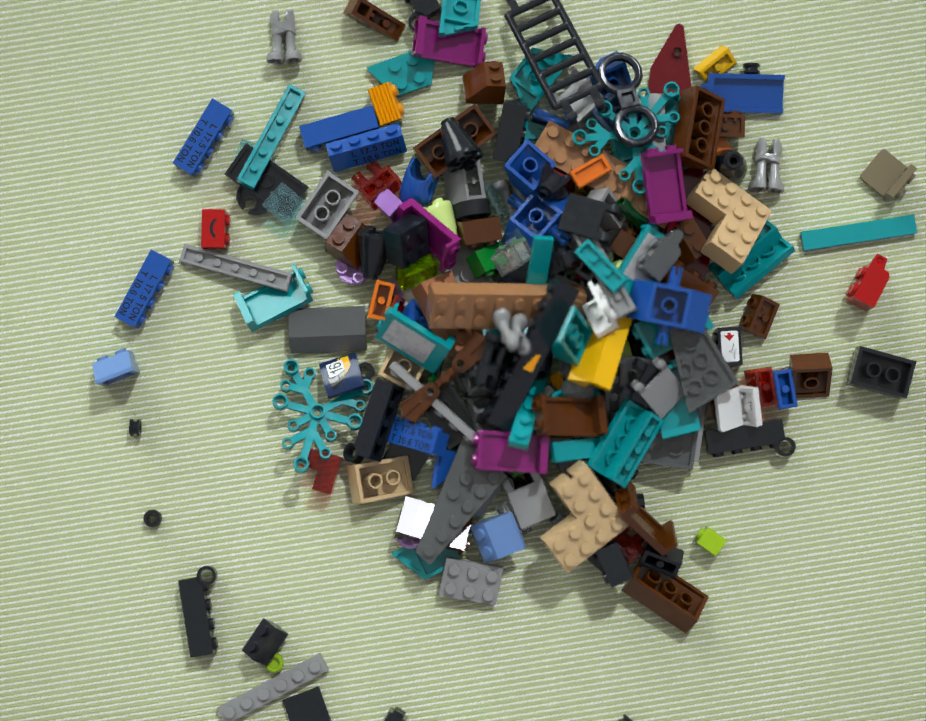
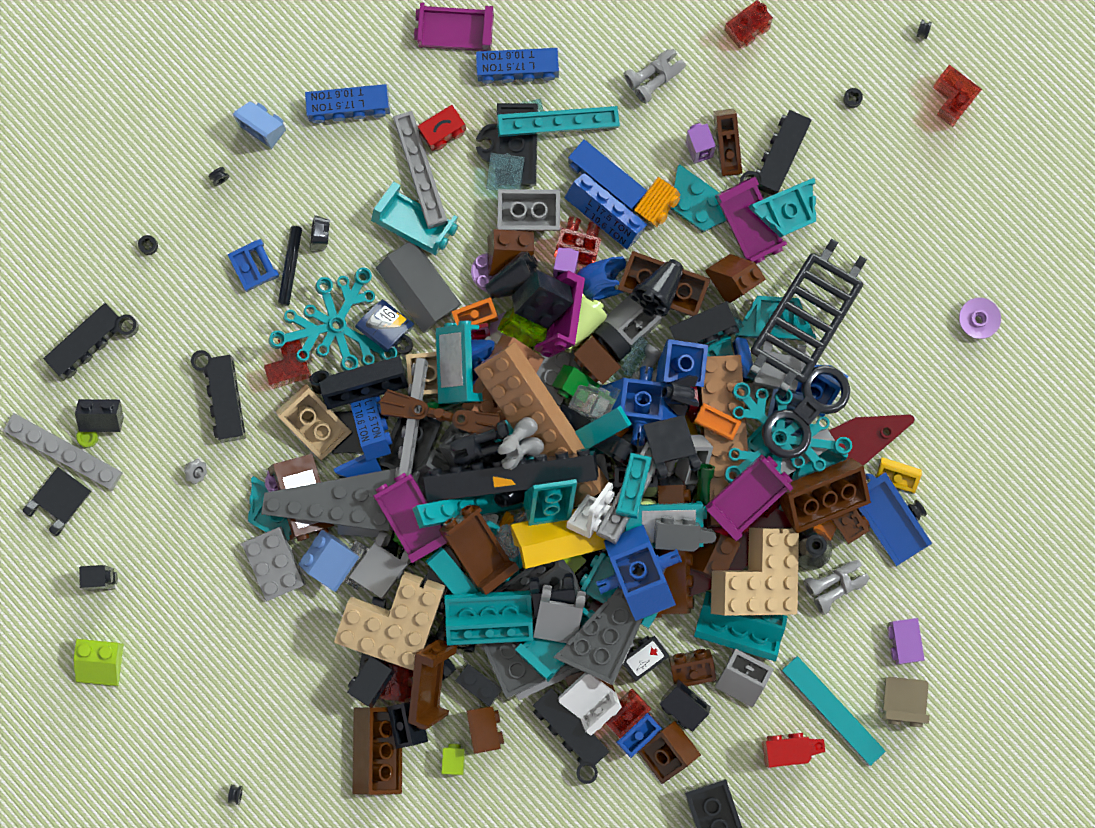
camera: 55 degrees right, 5 degrees down
(140, 167) = (454, 28): none -> magenta panel
(222, 452) = (246, 267): none -> blue plate
(235, 378) = (319, 233): none -> piece
(244, 418) = (290, 265): none -> black axle
(313, 534) = (224, 394): none -> black hinge
(358, 595) = (195, 471): none -> light grey piece
(362, 39) = (700, 143): none -> medium lavender brick
(667, 484) = (479, 685): none -> black brick
(703, 502) = (484, 729): none -> reddish brown slope
(784, 340) = (685, 706): none -> black brick
(792, 282) = (744, 677): none -> light grey slope
(843, 144) = (906, 641): none -> medium lavender brick

